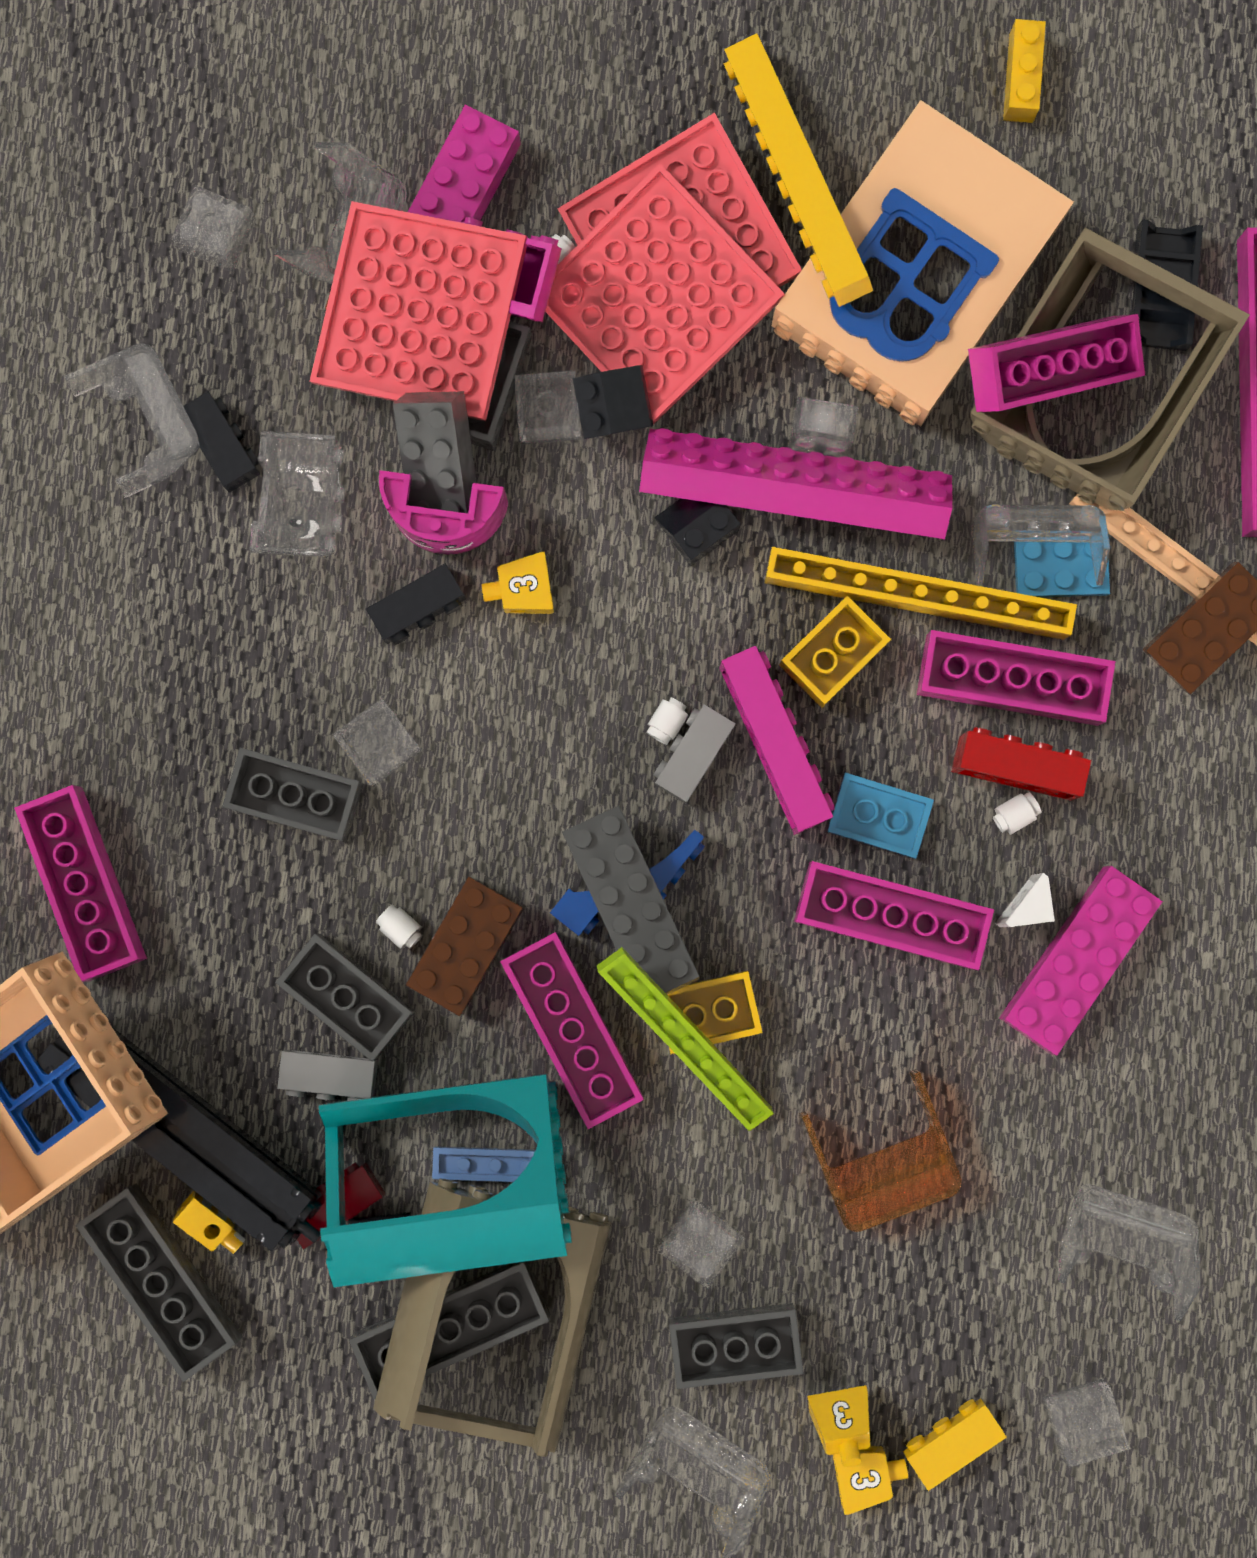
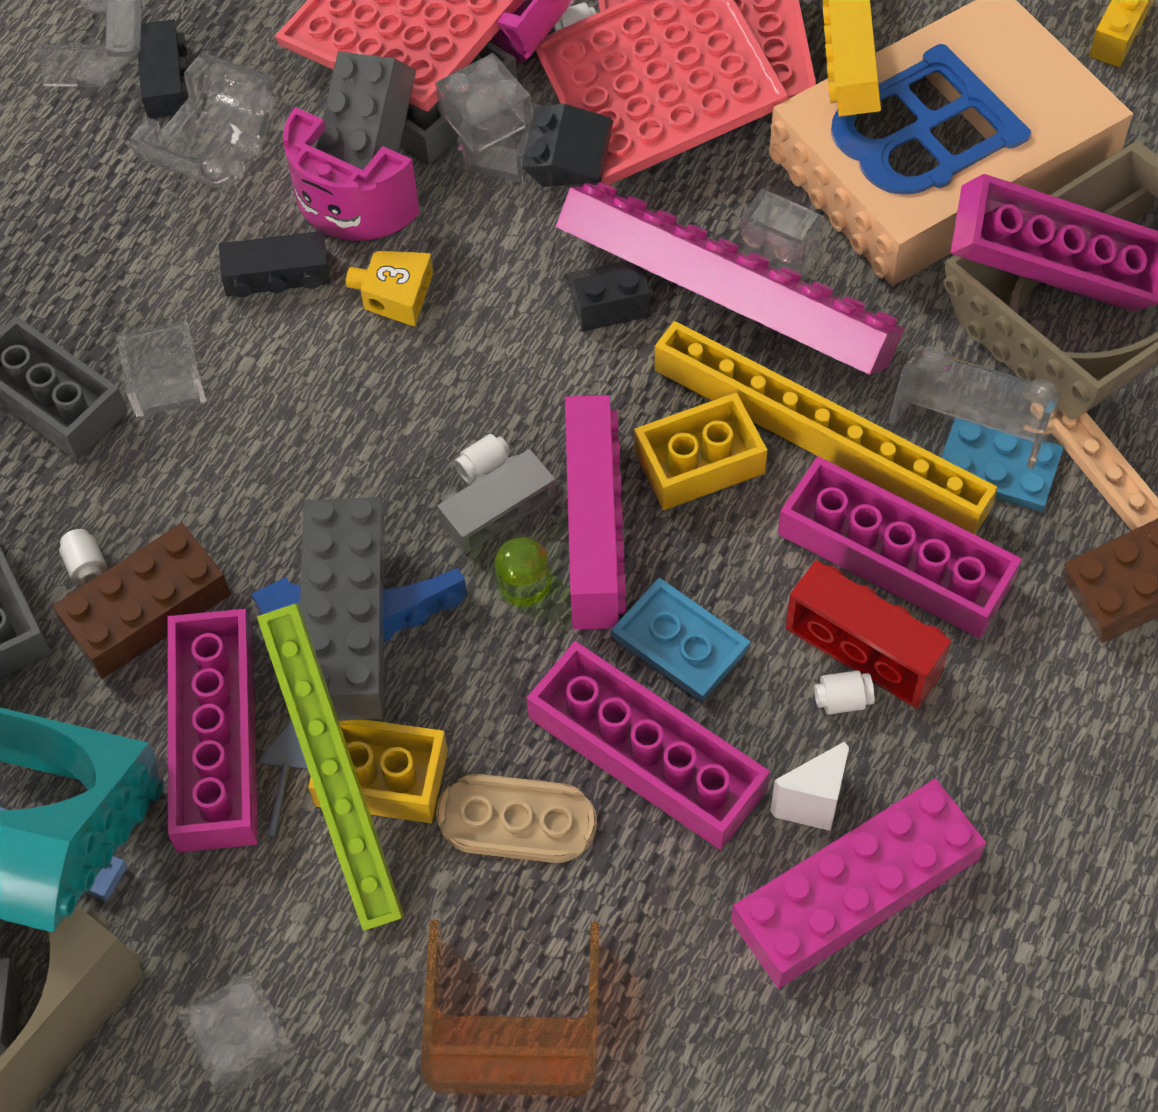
camera: 20 degrees right, 25 degrees down
(530, 395) = (484, 103): none -> clear brick
(628, 1019) = (284, 753): none -> sand blue piece
(740, 807) = (522, 563): none -> clear neon green helmet
(818, 1002) = (516, 818): none -> tan tile

